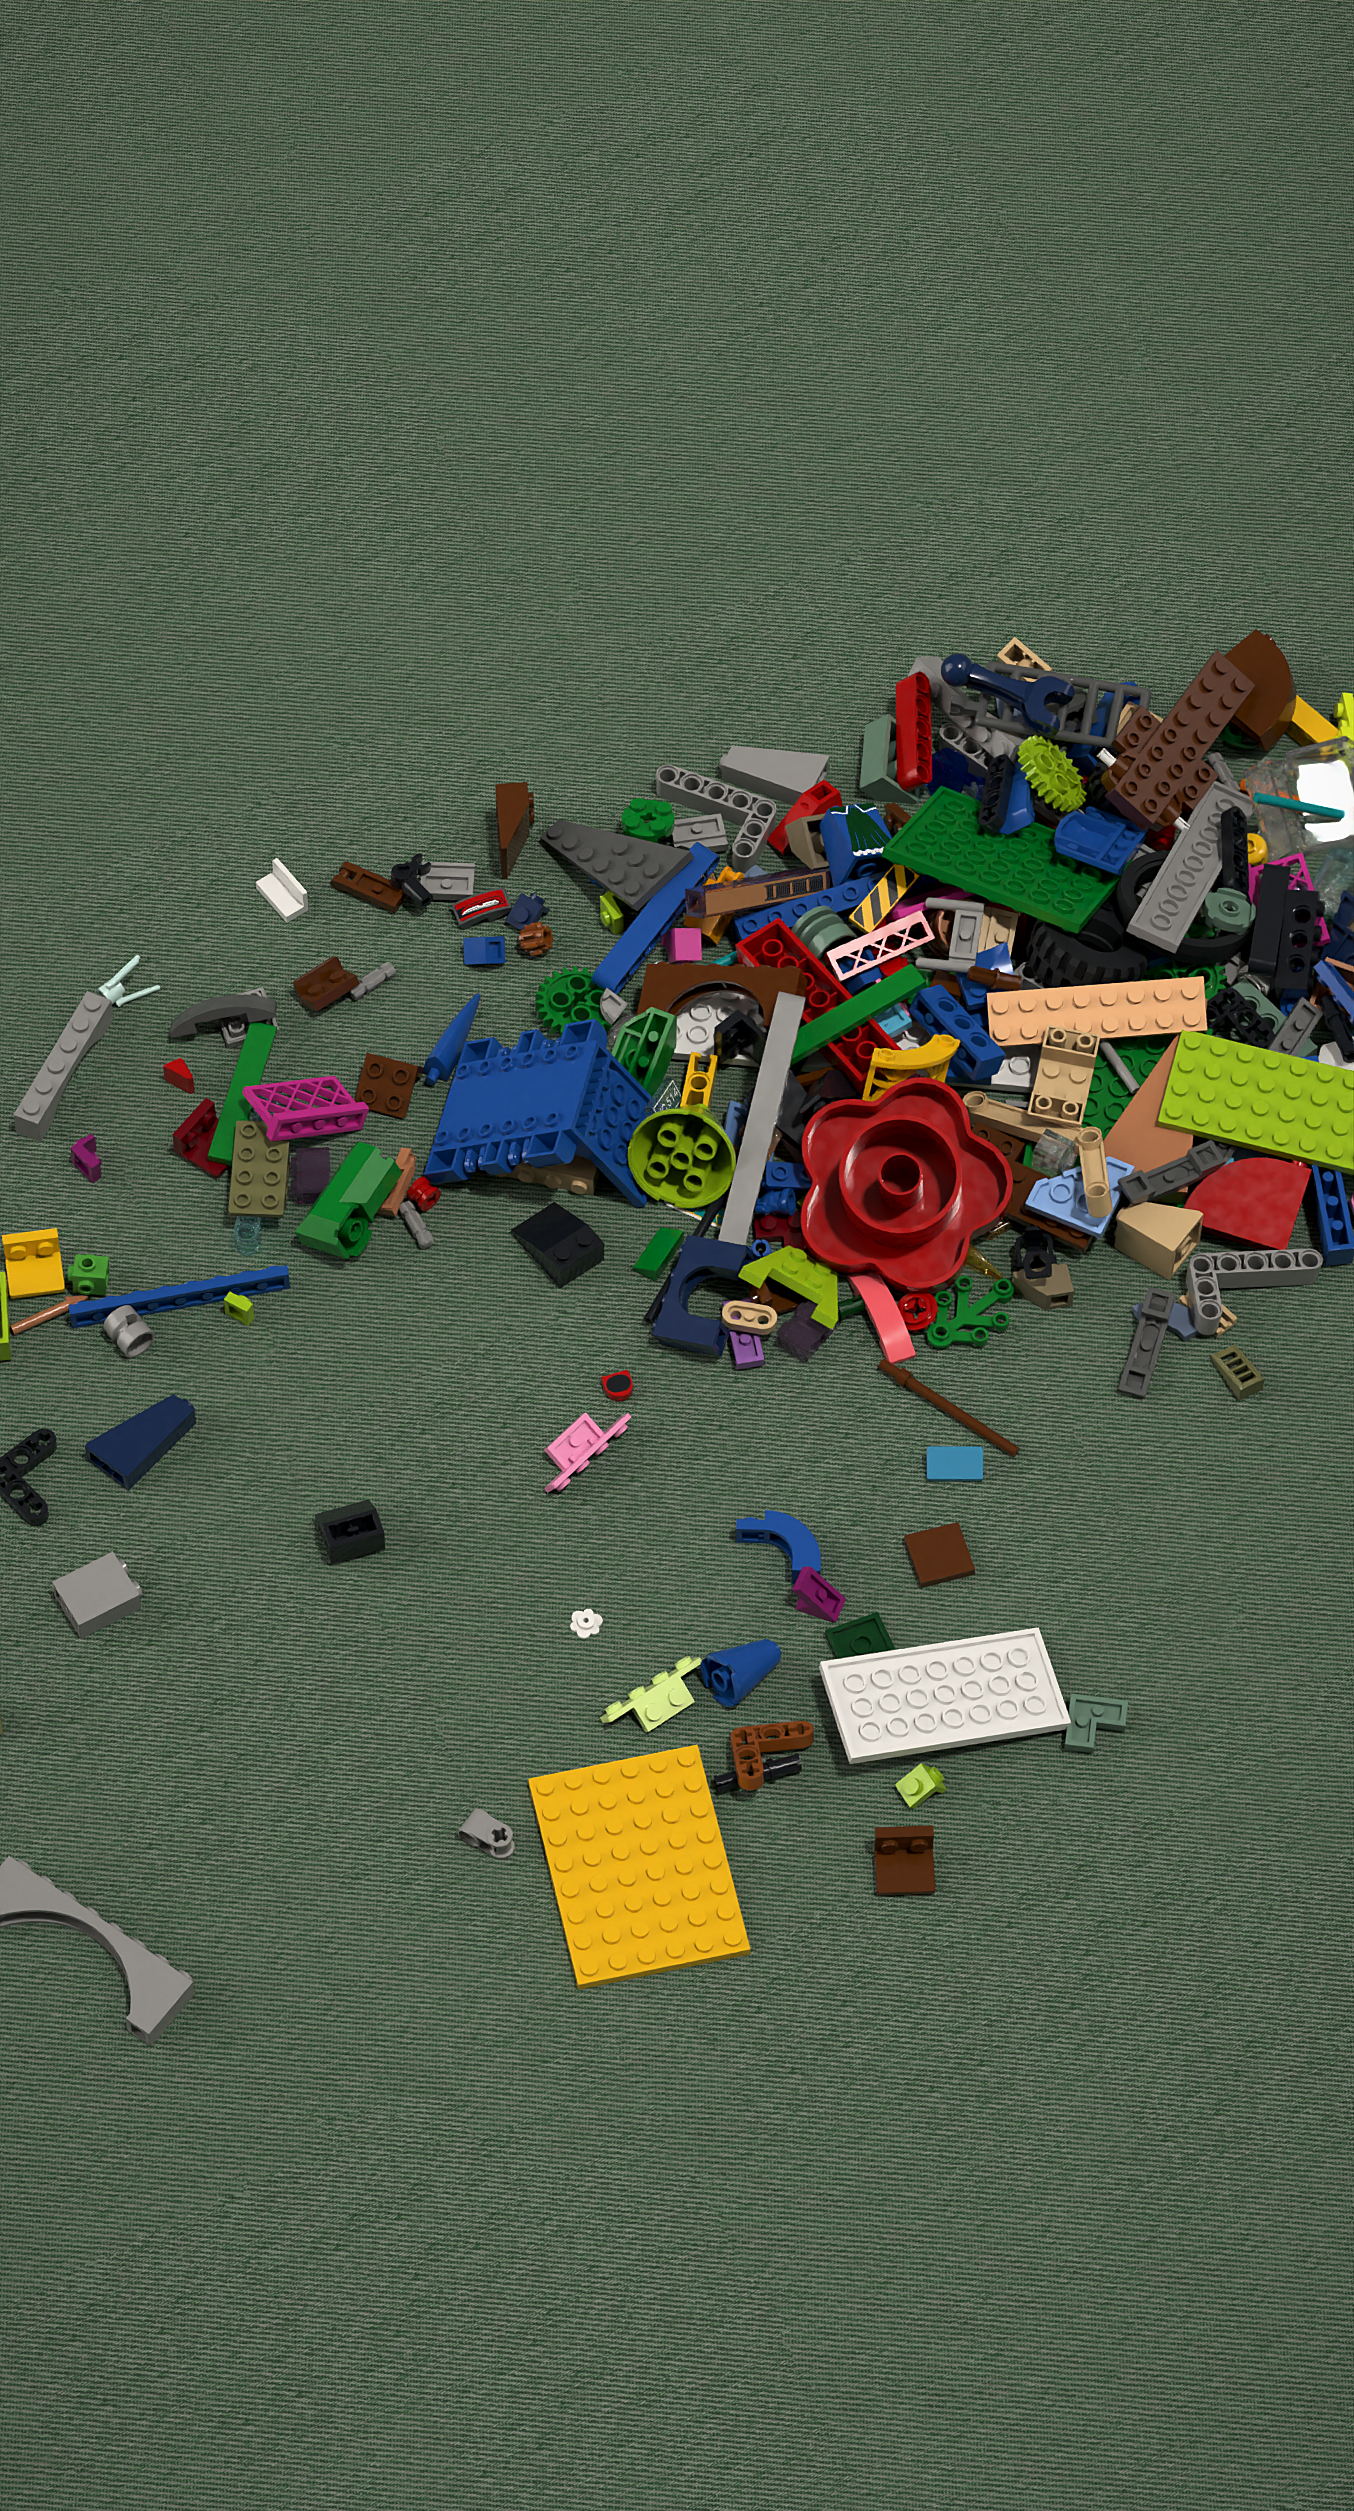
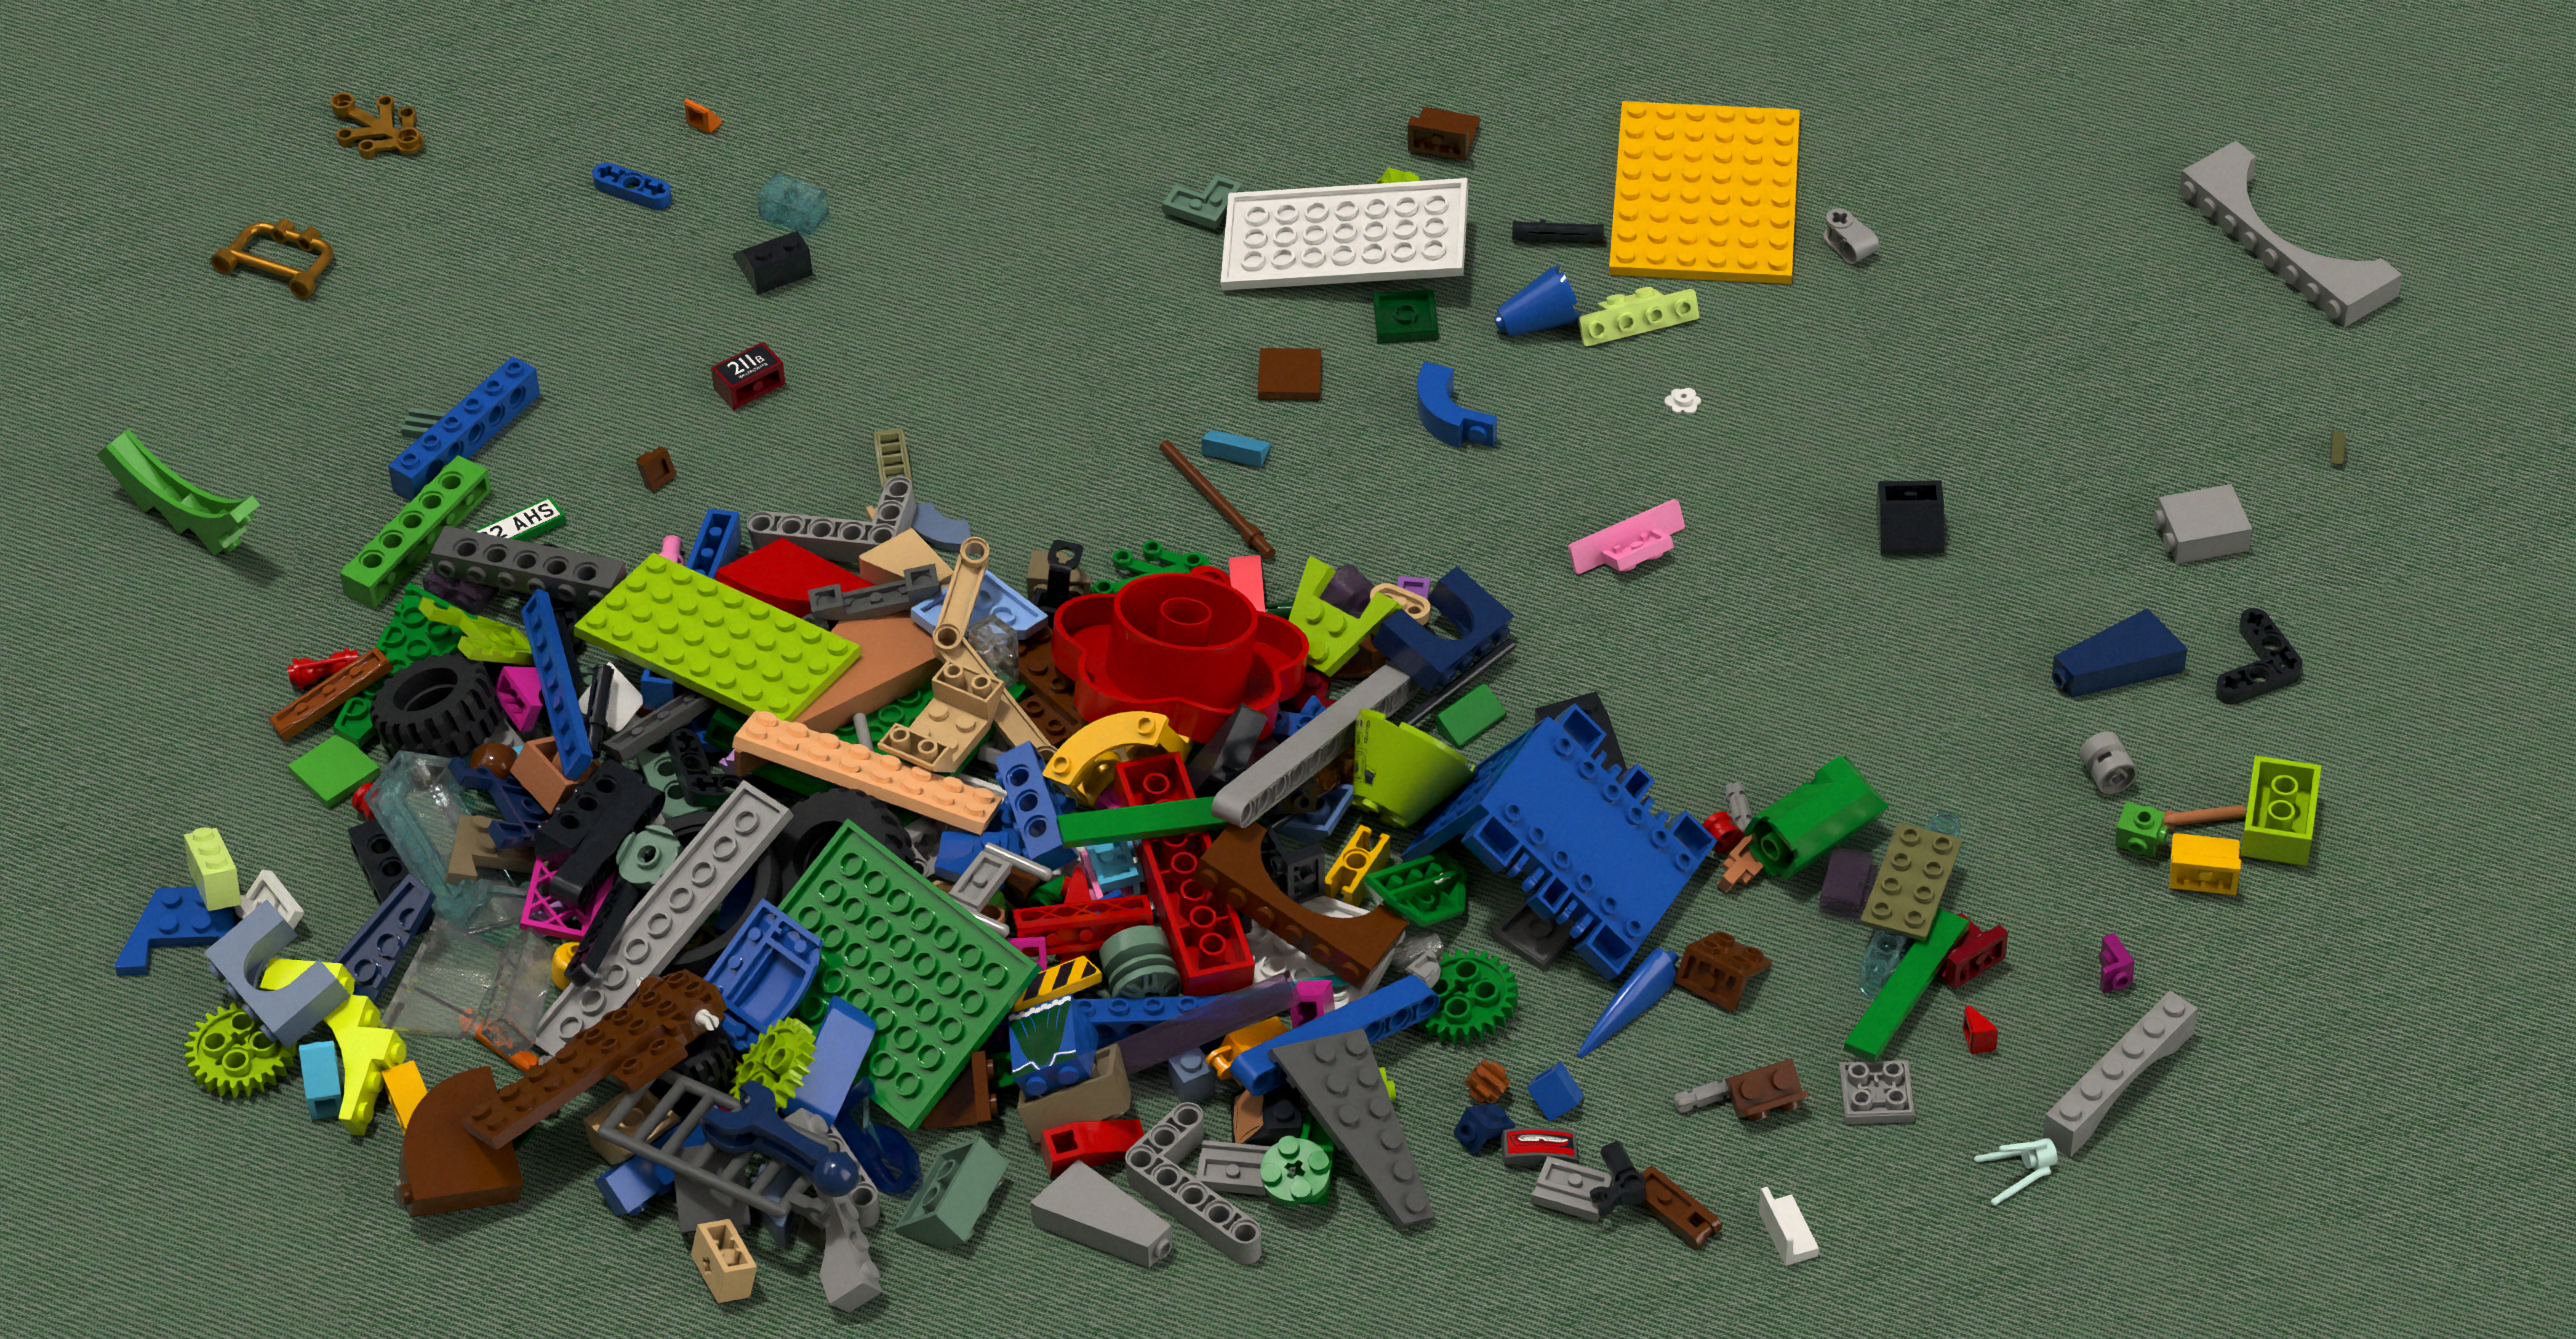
camera: 160 degrees left, 10 degrees down
(182, 1296) = (2037, 789): blue plate -> none
(239, 1308) = (1973, 762): lime plate -> none
(254, 1006) = (1908, 1074): dark grey slope -> none
(306, 1119) = (1823, 911): dark pink fence -> none
(513, 818) = (1467, 1216): reddish brown slope -> none
(618, 1385) = (1567, 600): tile -> none
(665, 1097) = (1409, 841): clear light blue tile -> none
(763, 1245) = (1360, 662): blue pin -> none
(791, 1736) = (1548, 250): dark orange beam -> none
(817, 1596) = (1437, 352): magenta slope -> none
(913, 731) = (910, 1197): red beam -> none
(994, 978) = (968, 830): reddish brown axle -> none
(996, 794) = (851, 1056): black beam -> none
(1147, 1342) = (984, 499): dark grey slope -> none
(1299, 806) = (492, 971): teal bar -> none

